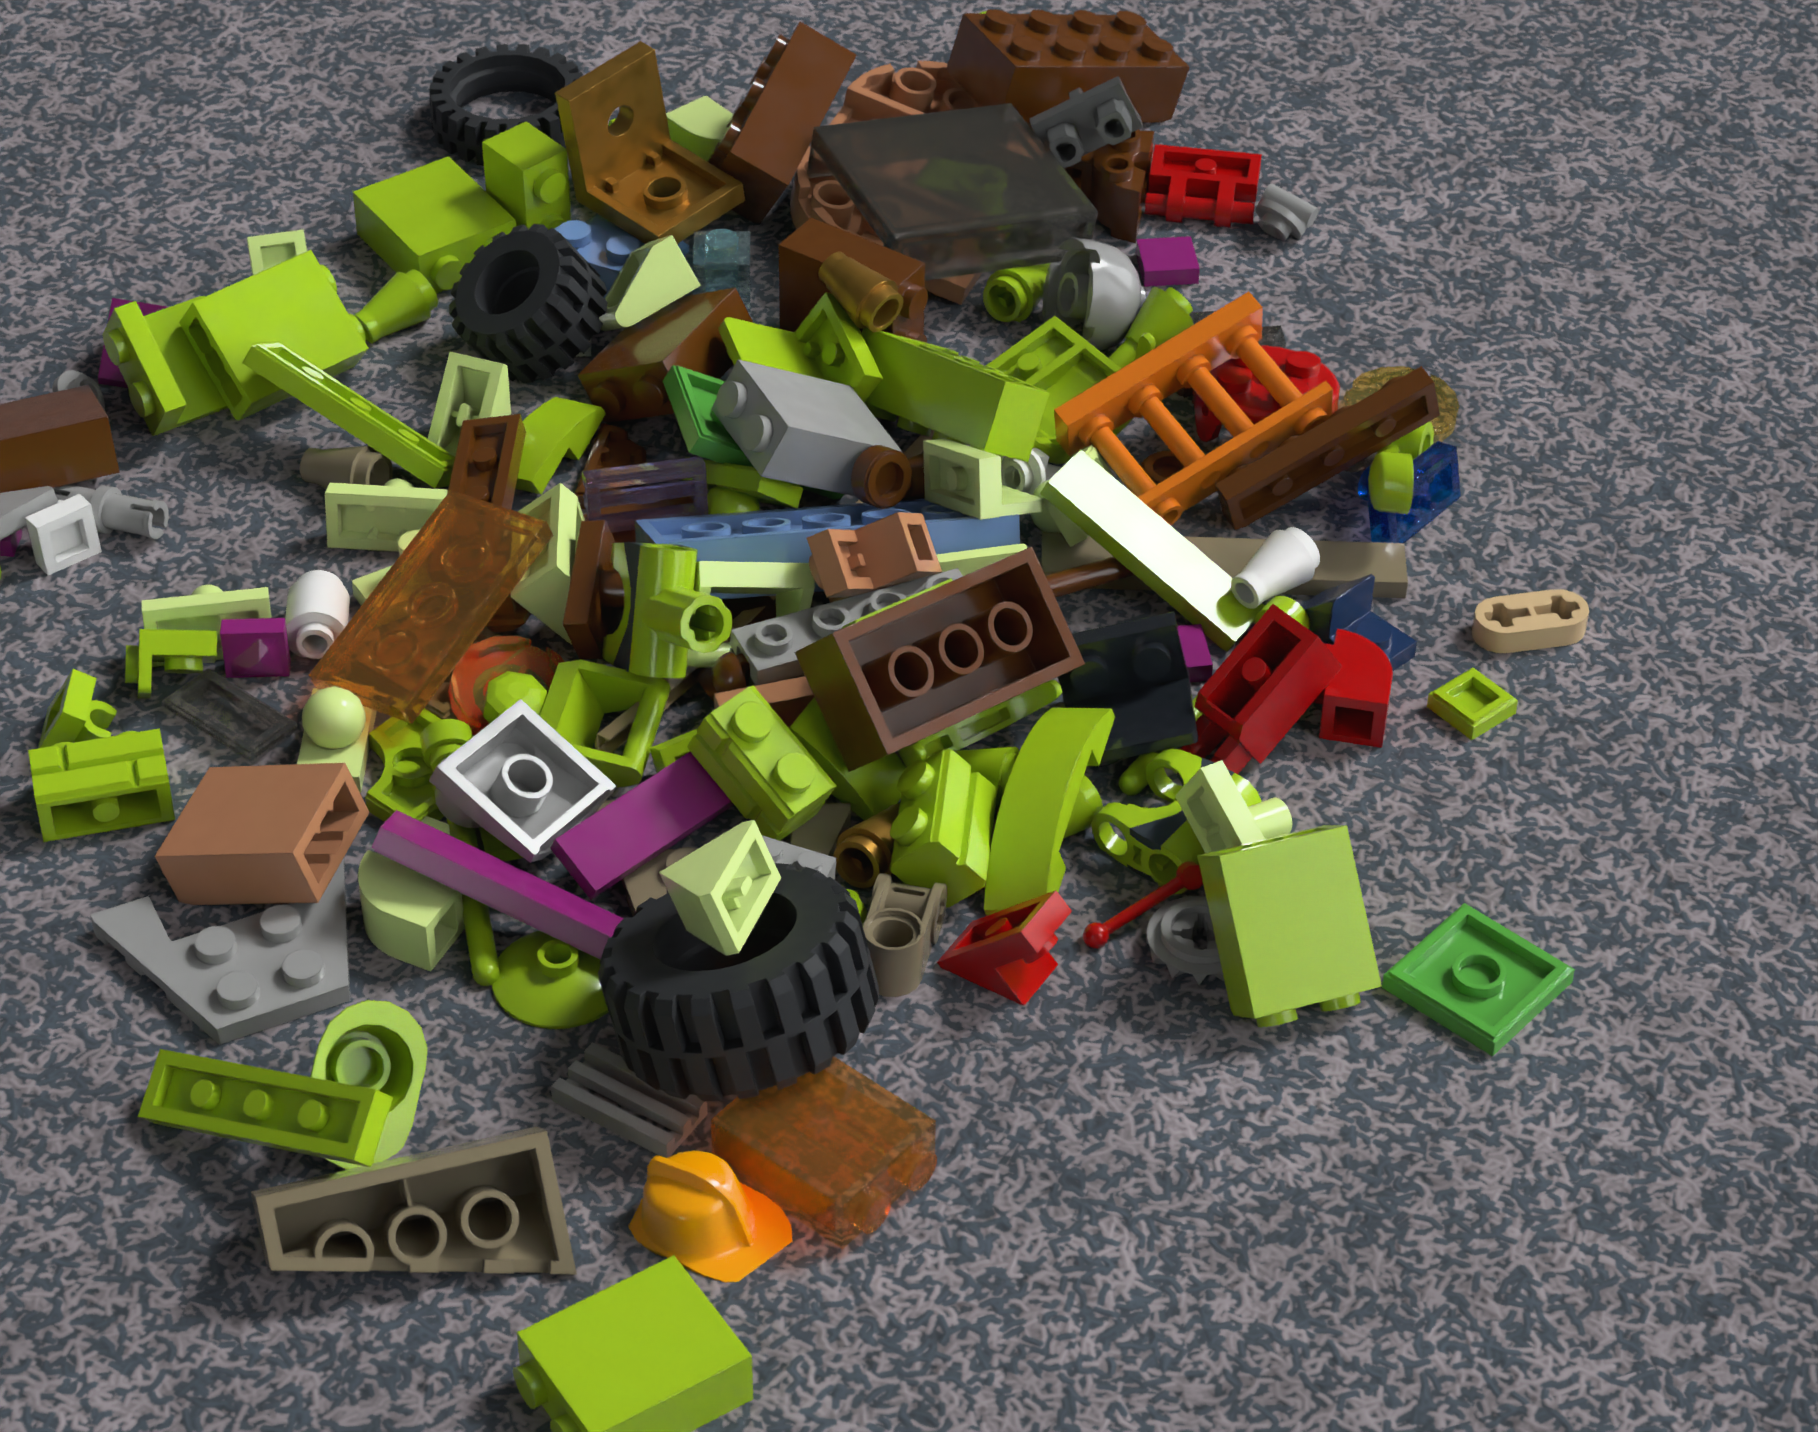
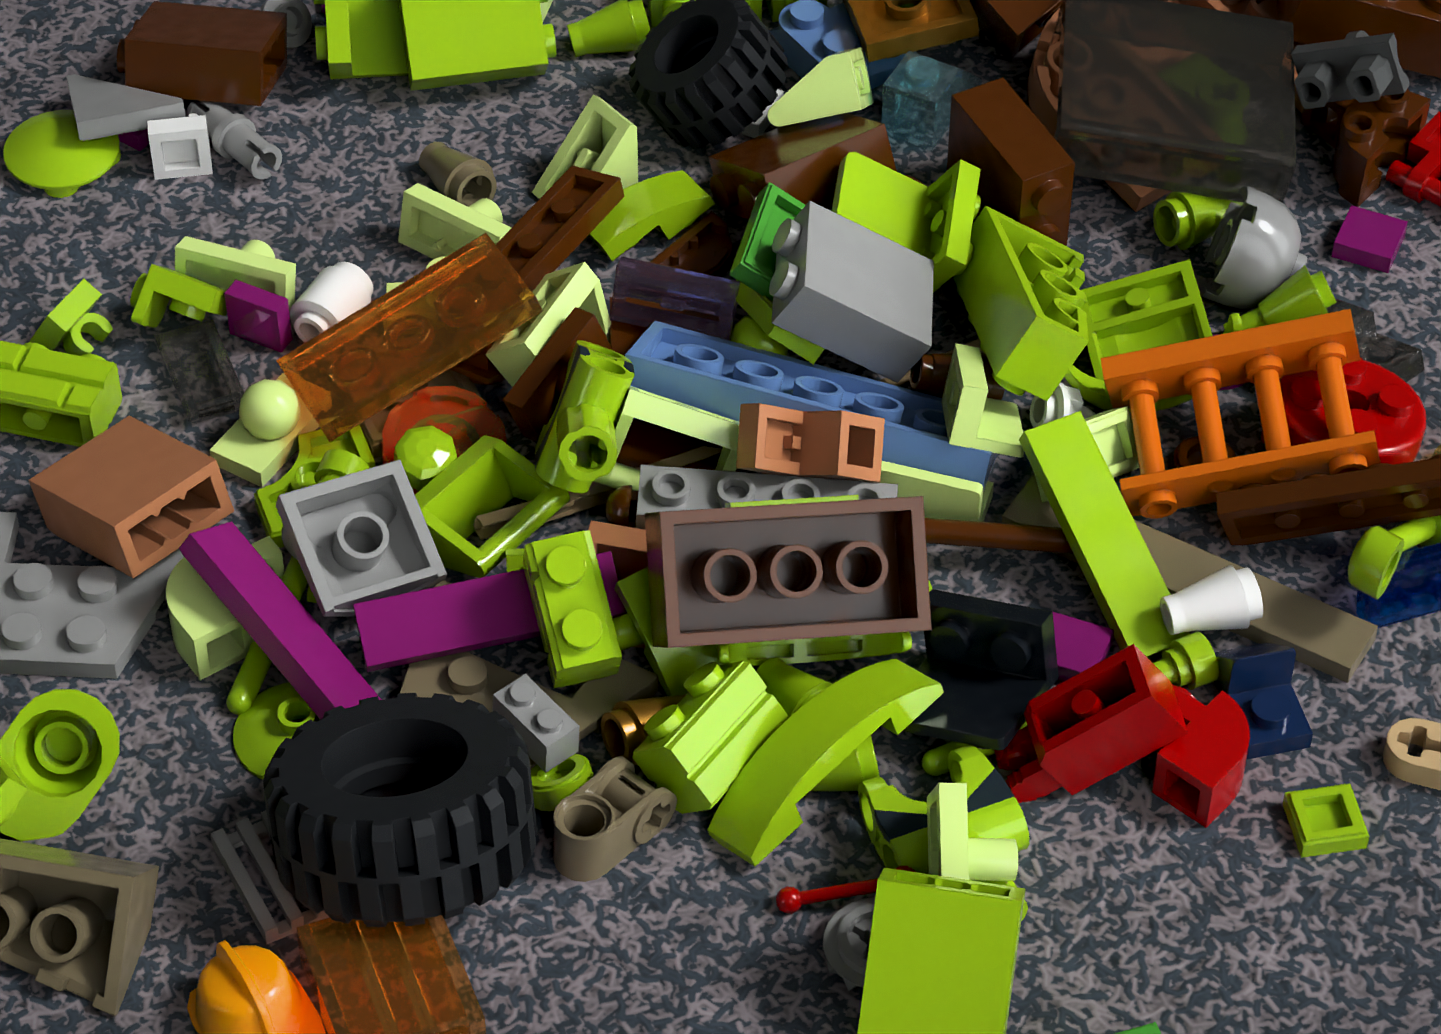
camera: 30 degrees right, 5 degrees up
(352, 412) = (480, 118): lime tile -> none
(724, 887) = (409, 717): yellowish green slope -> none
(863, 293) = (990, 173): pearl gold cone -> none
(881, 476) = (895, 364): reddish brown tile -> none
(1010, 948) = (690, 882): red slope -> none

